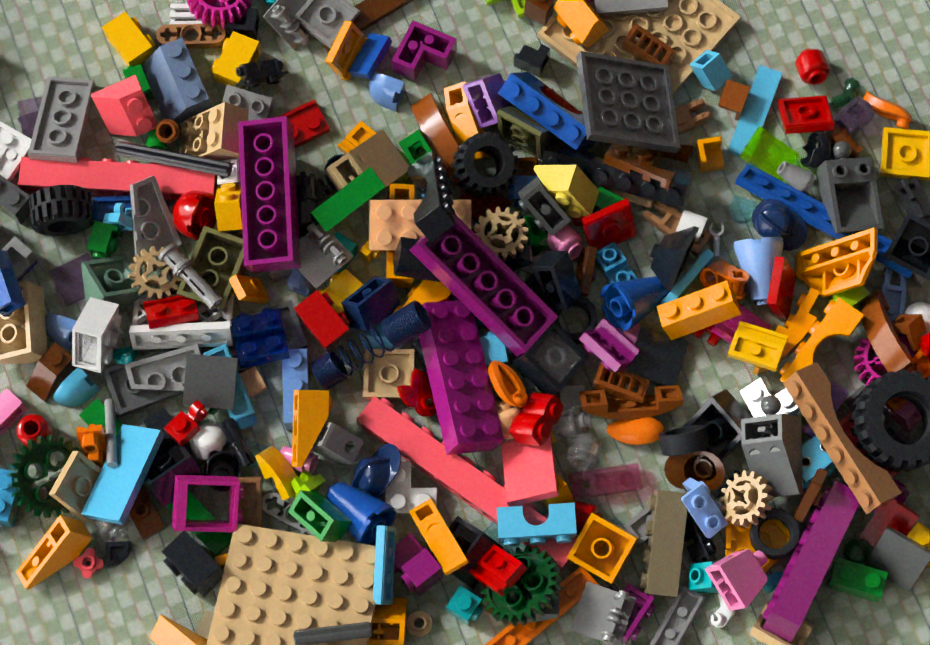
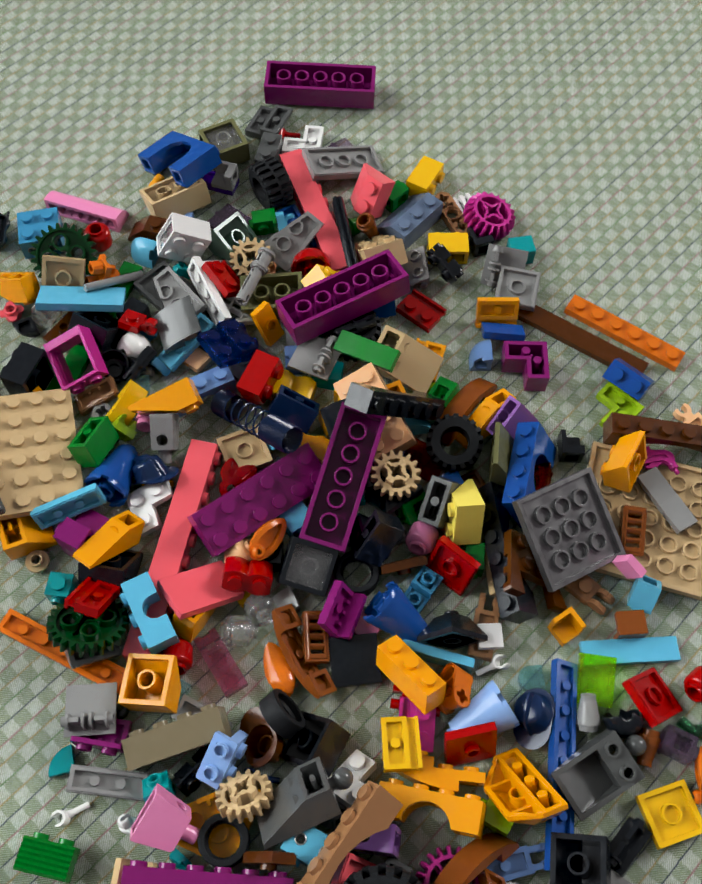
camera: 60 degrees right, 10 degrees down
(684, 69) = (629, 566): none -> bright pink tile

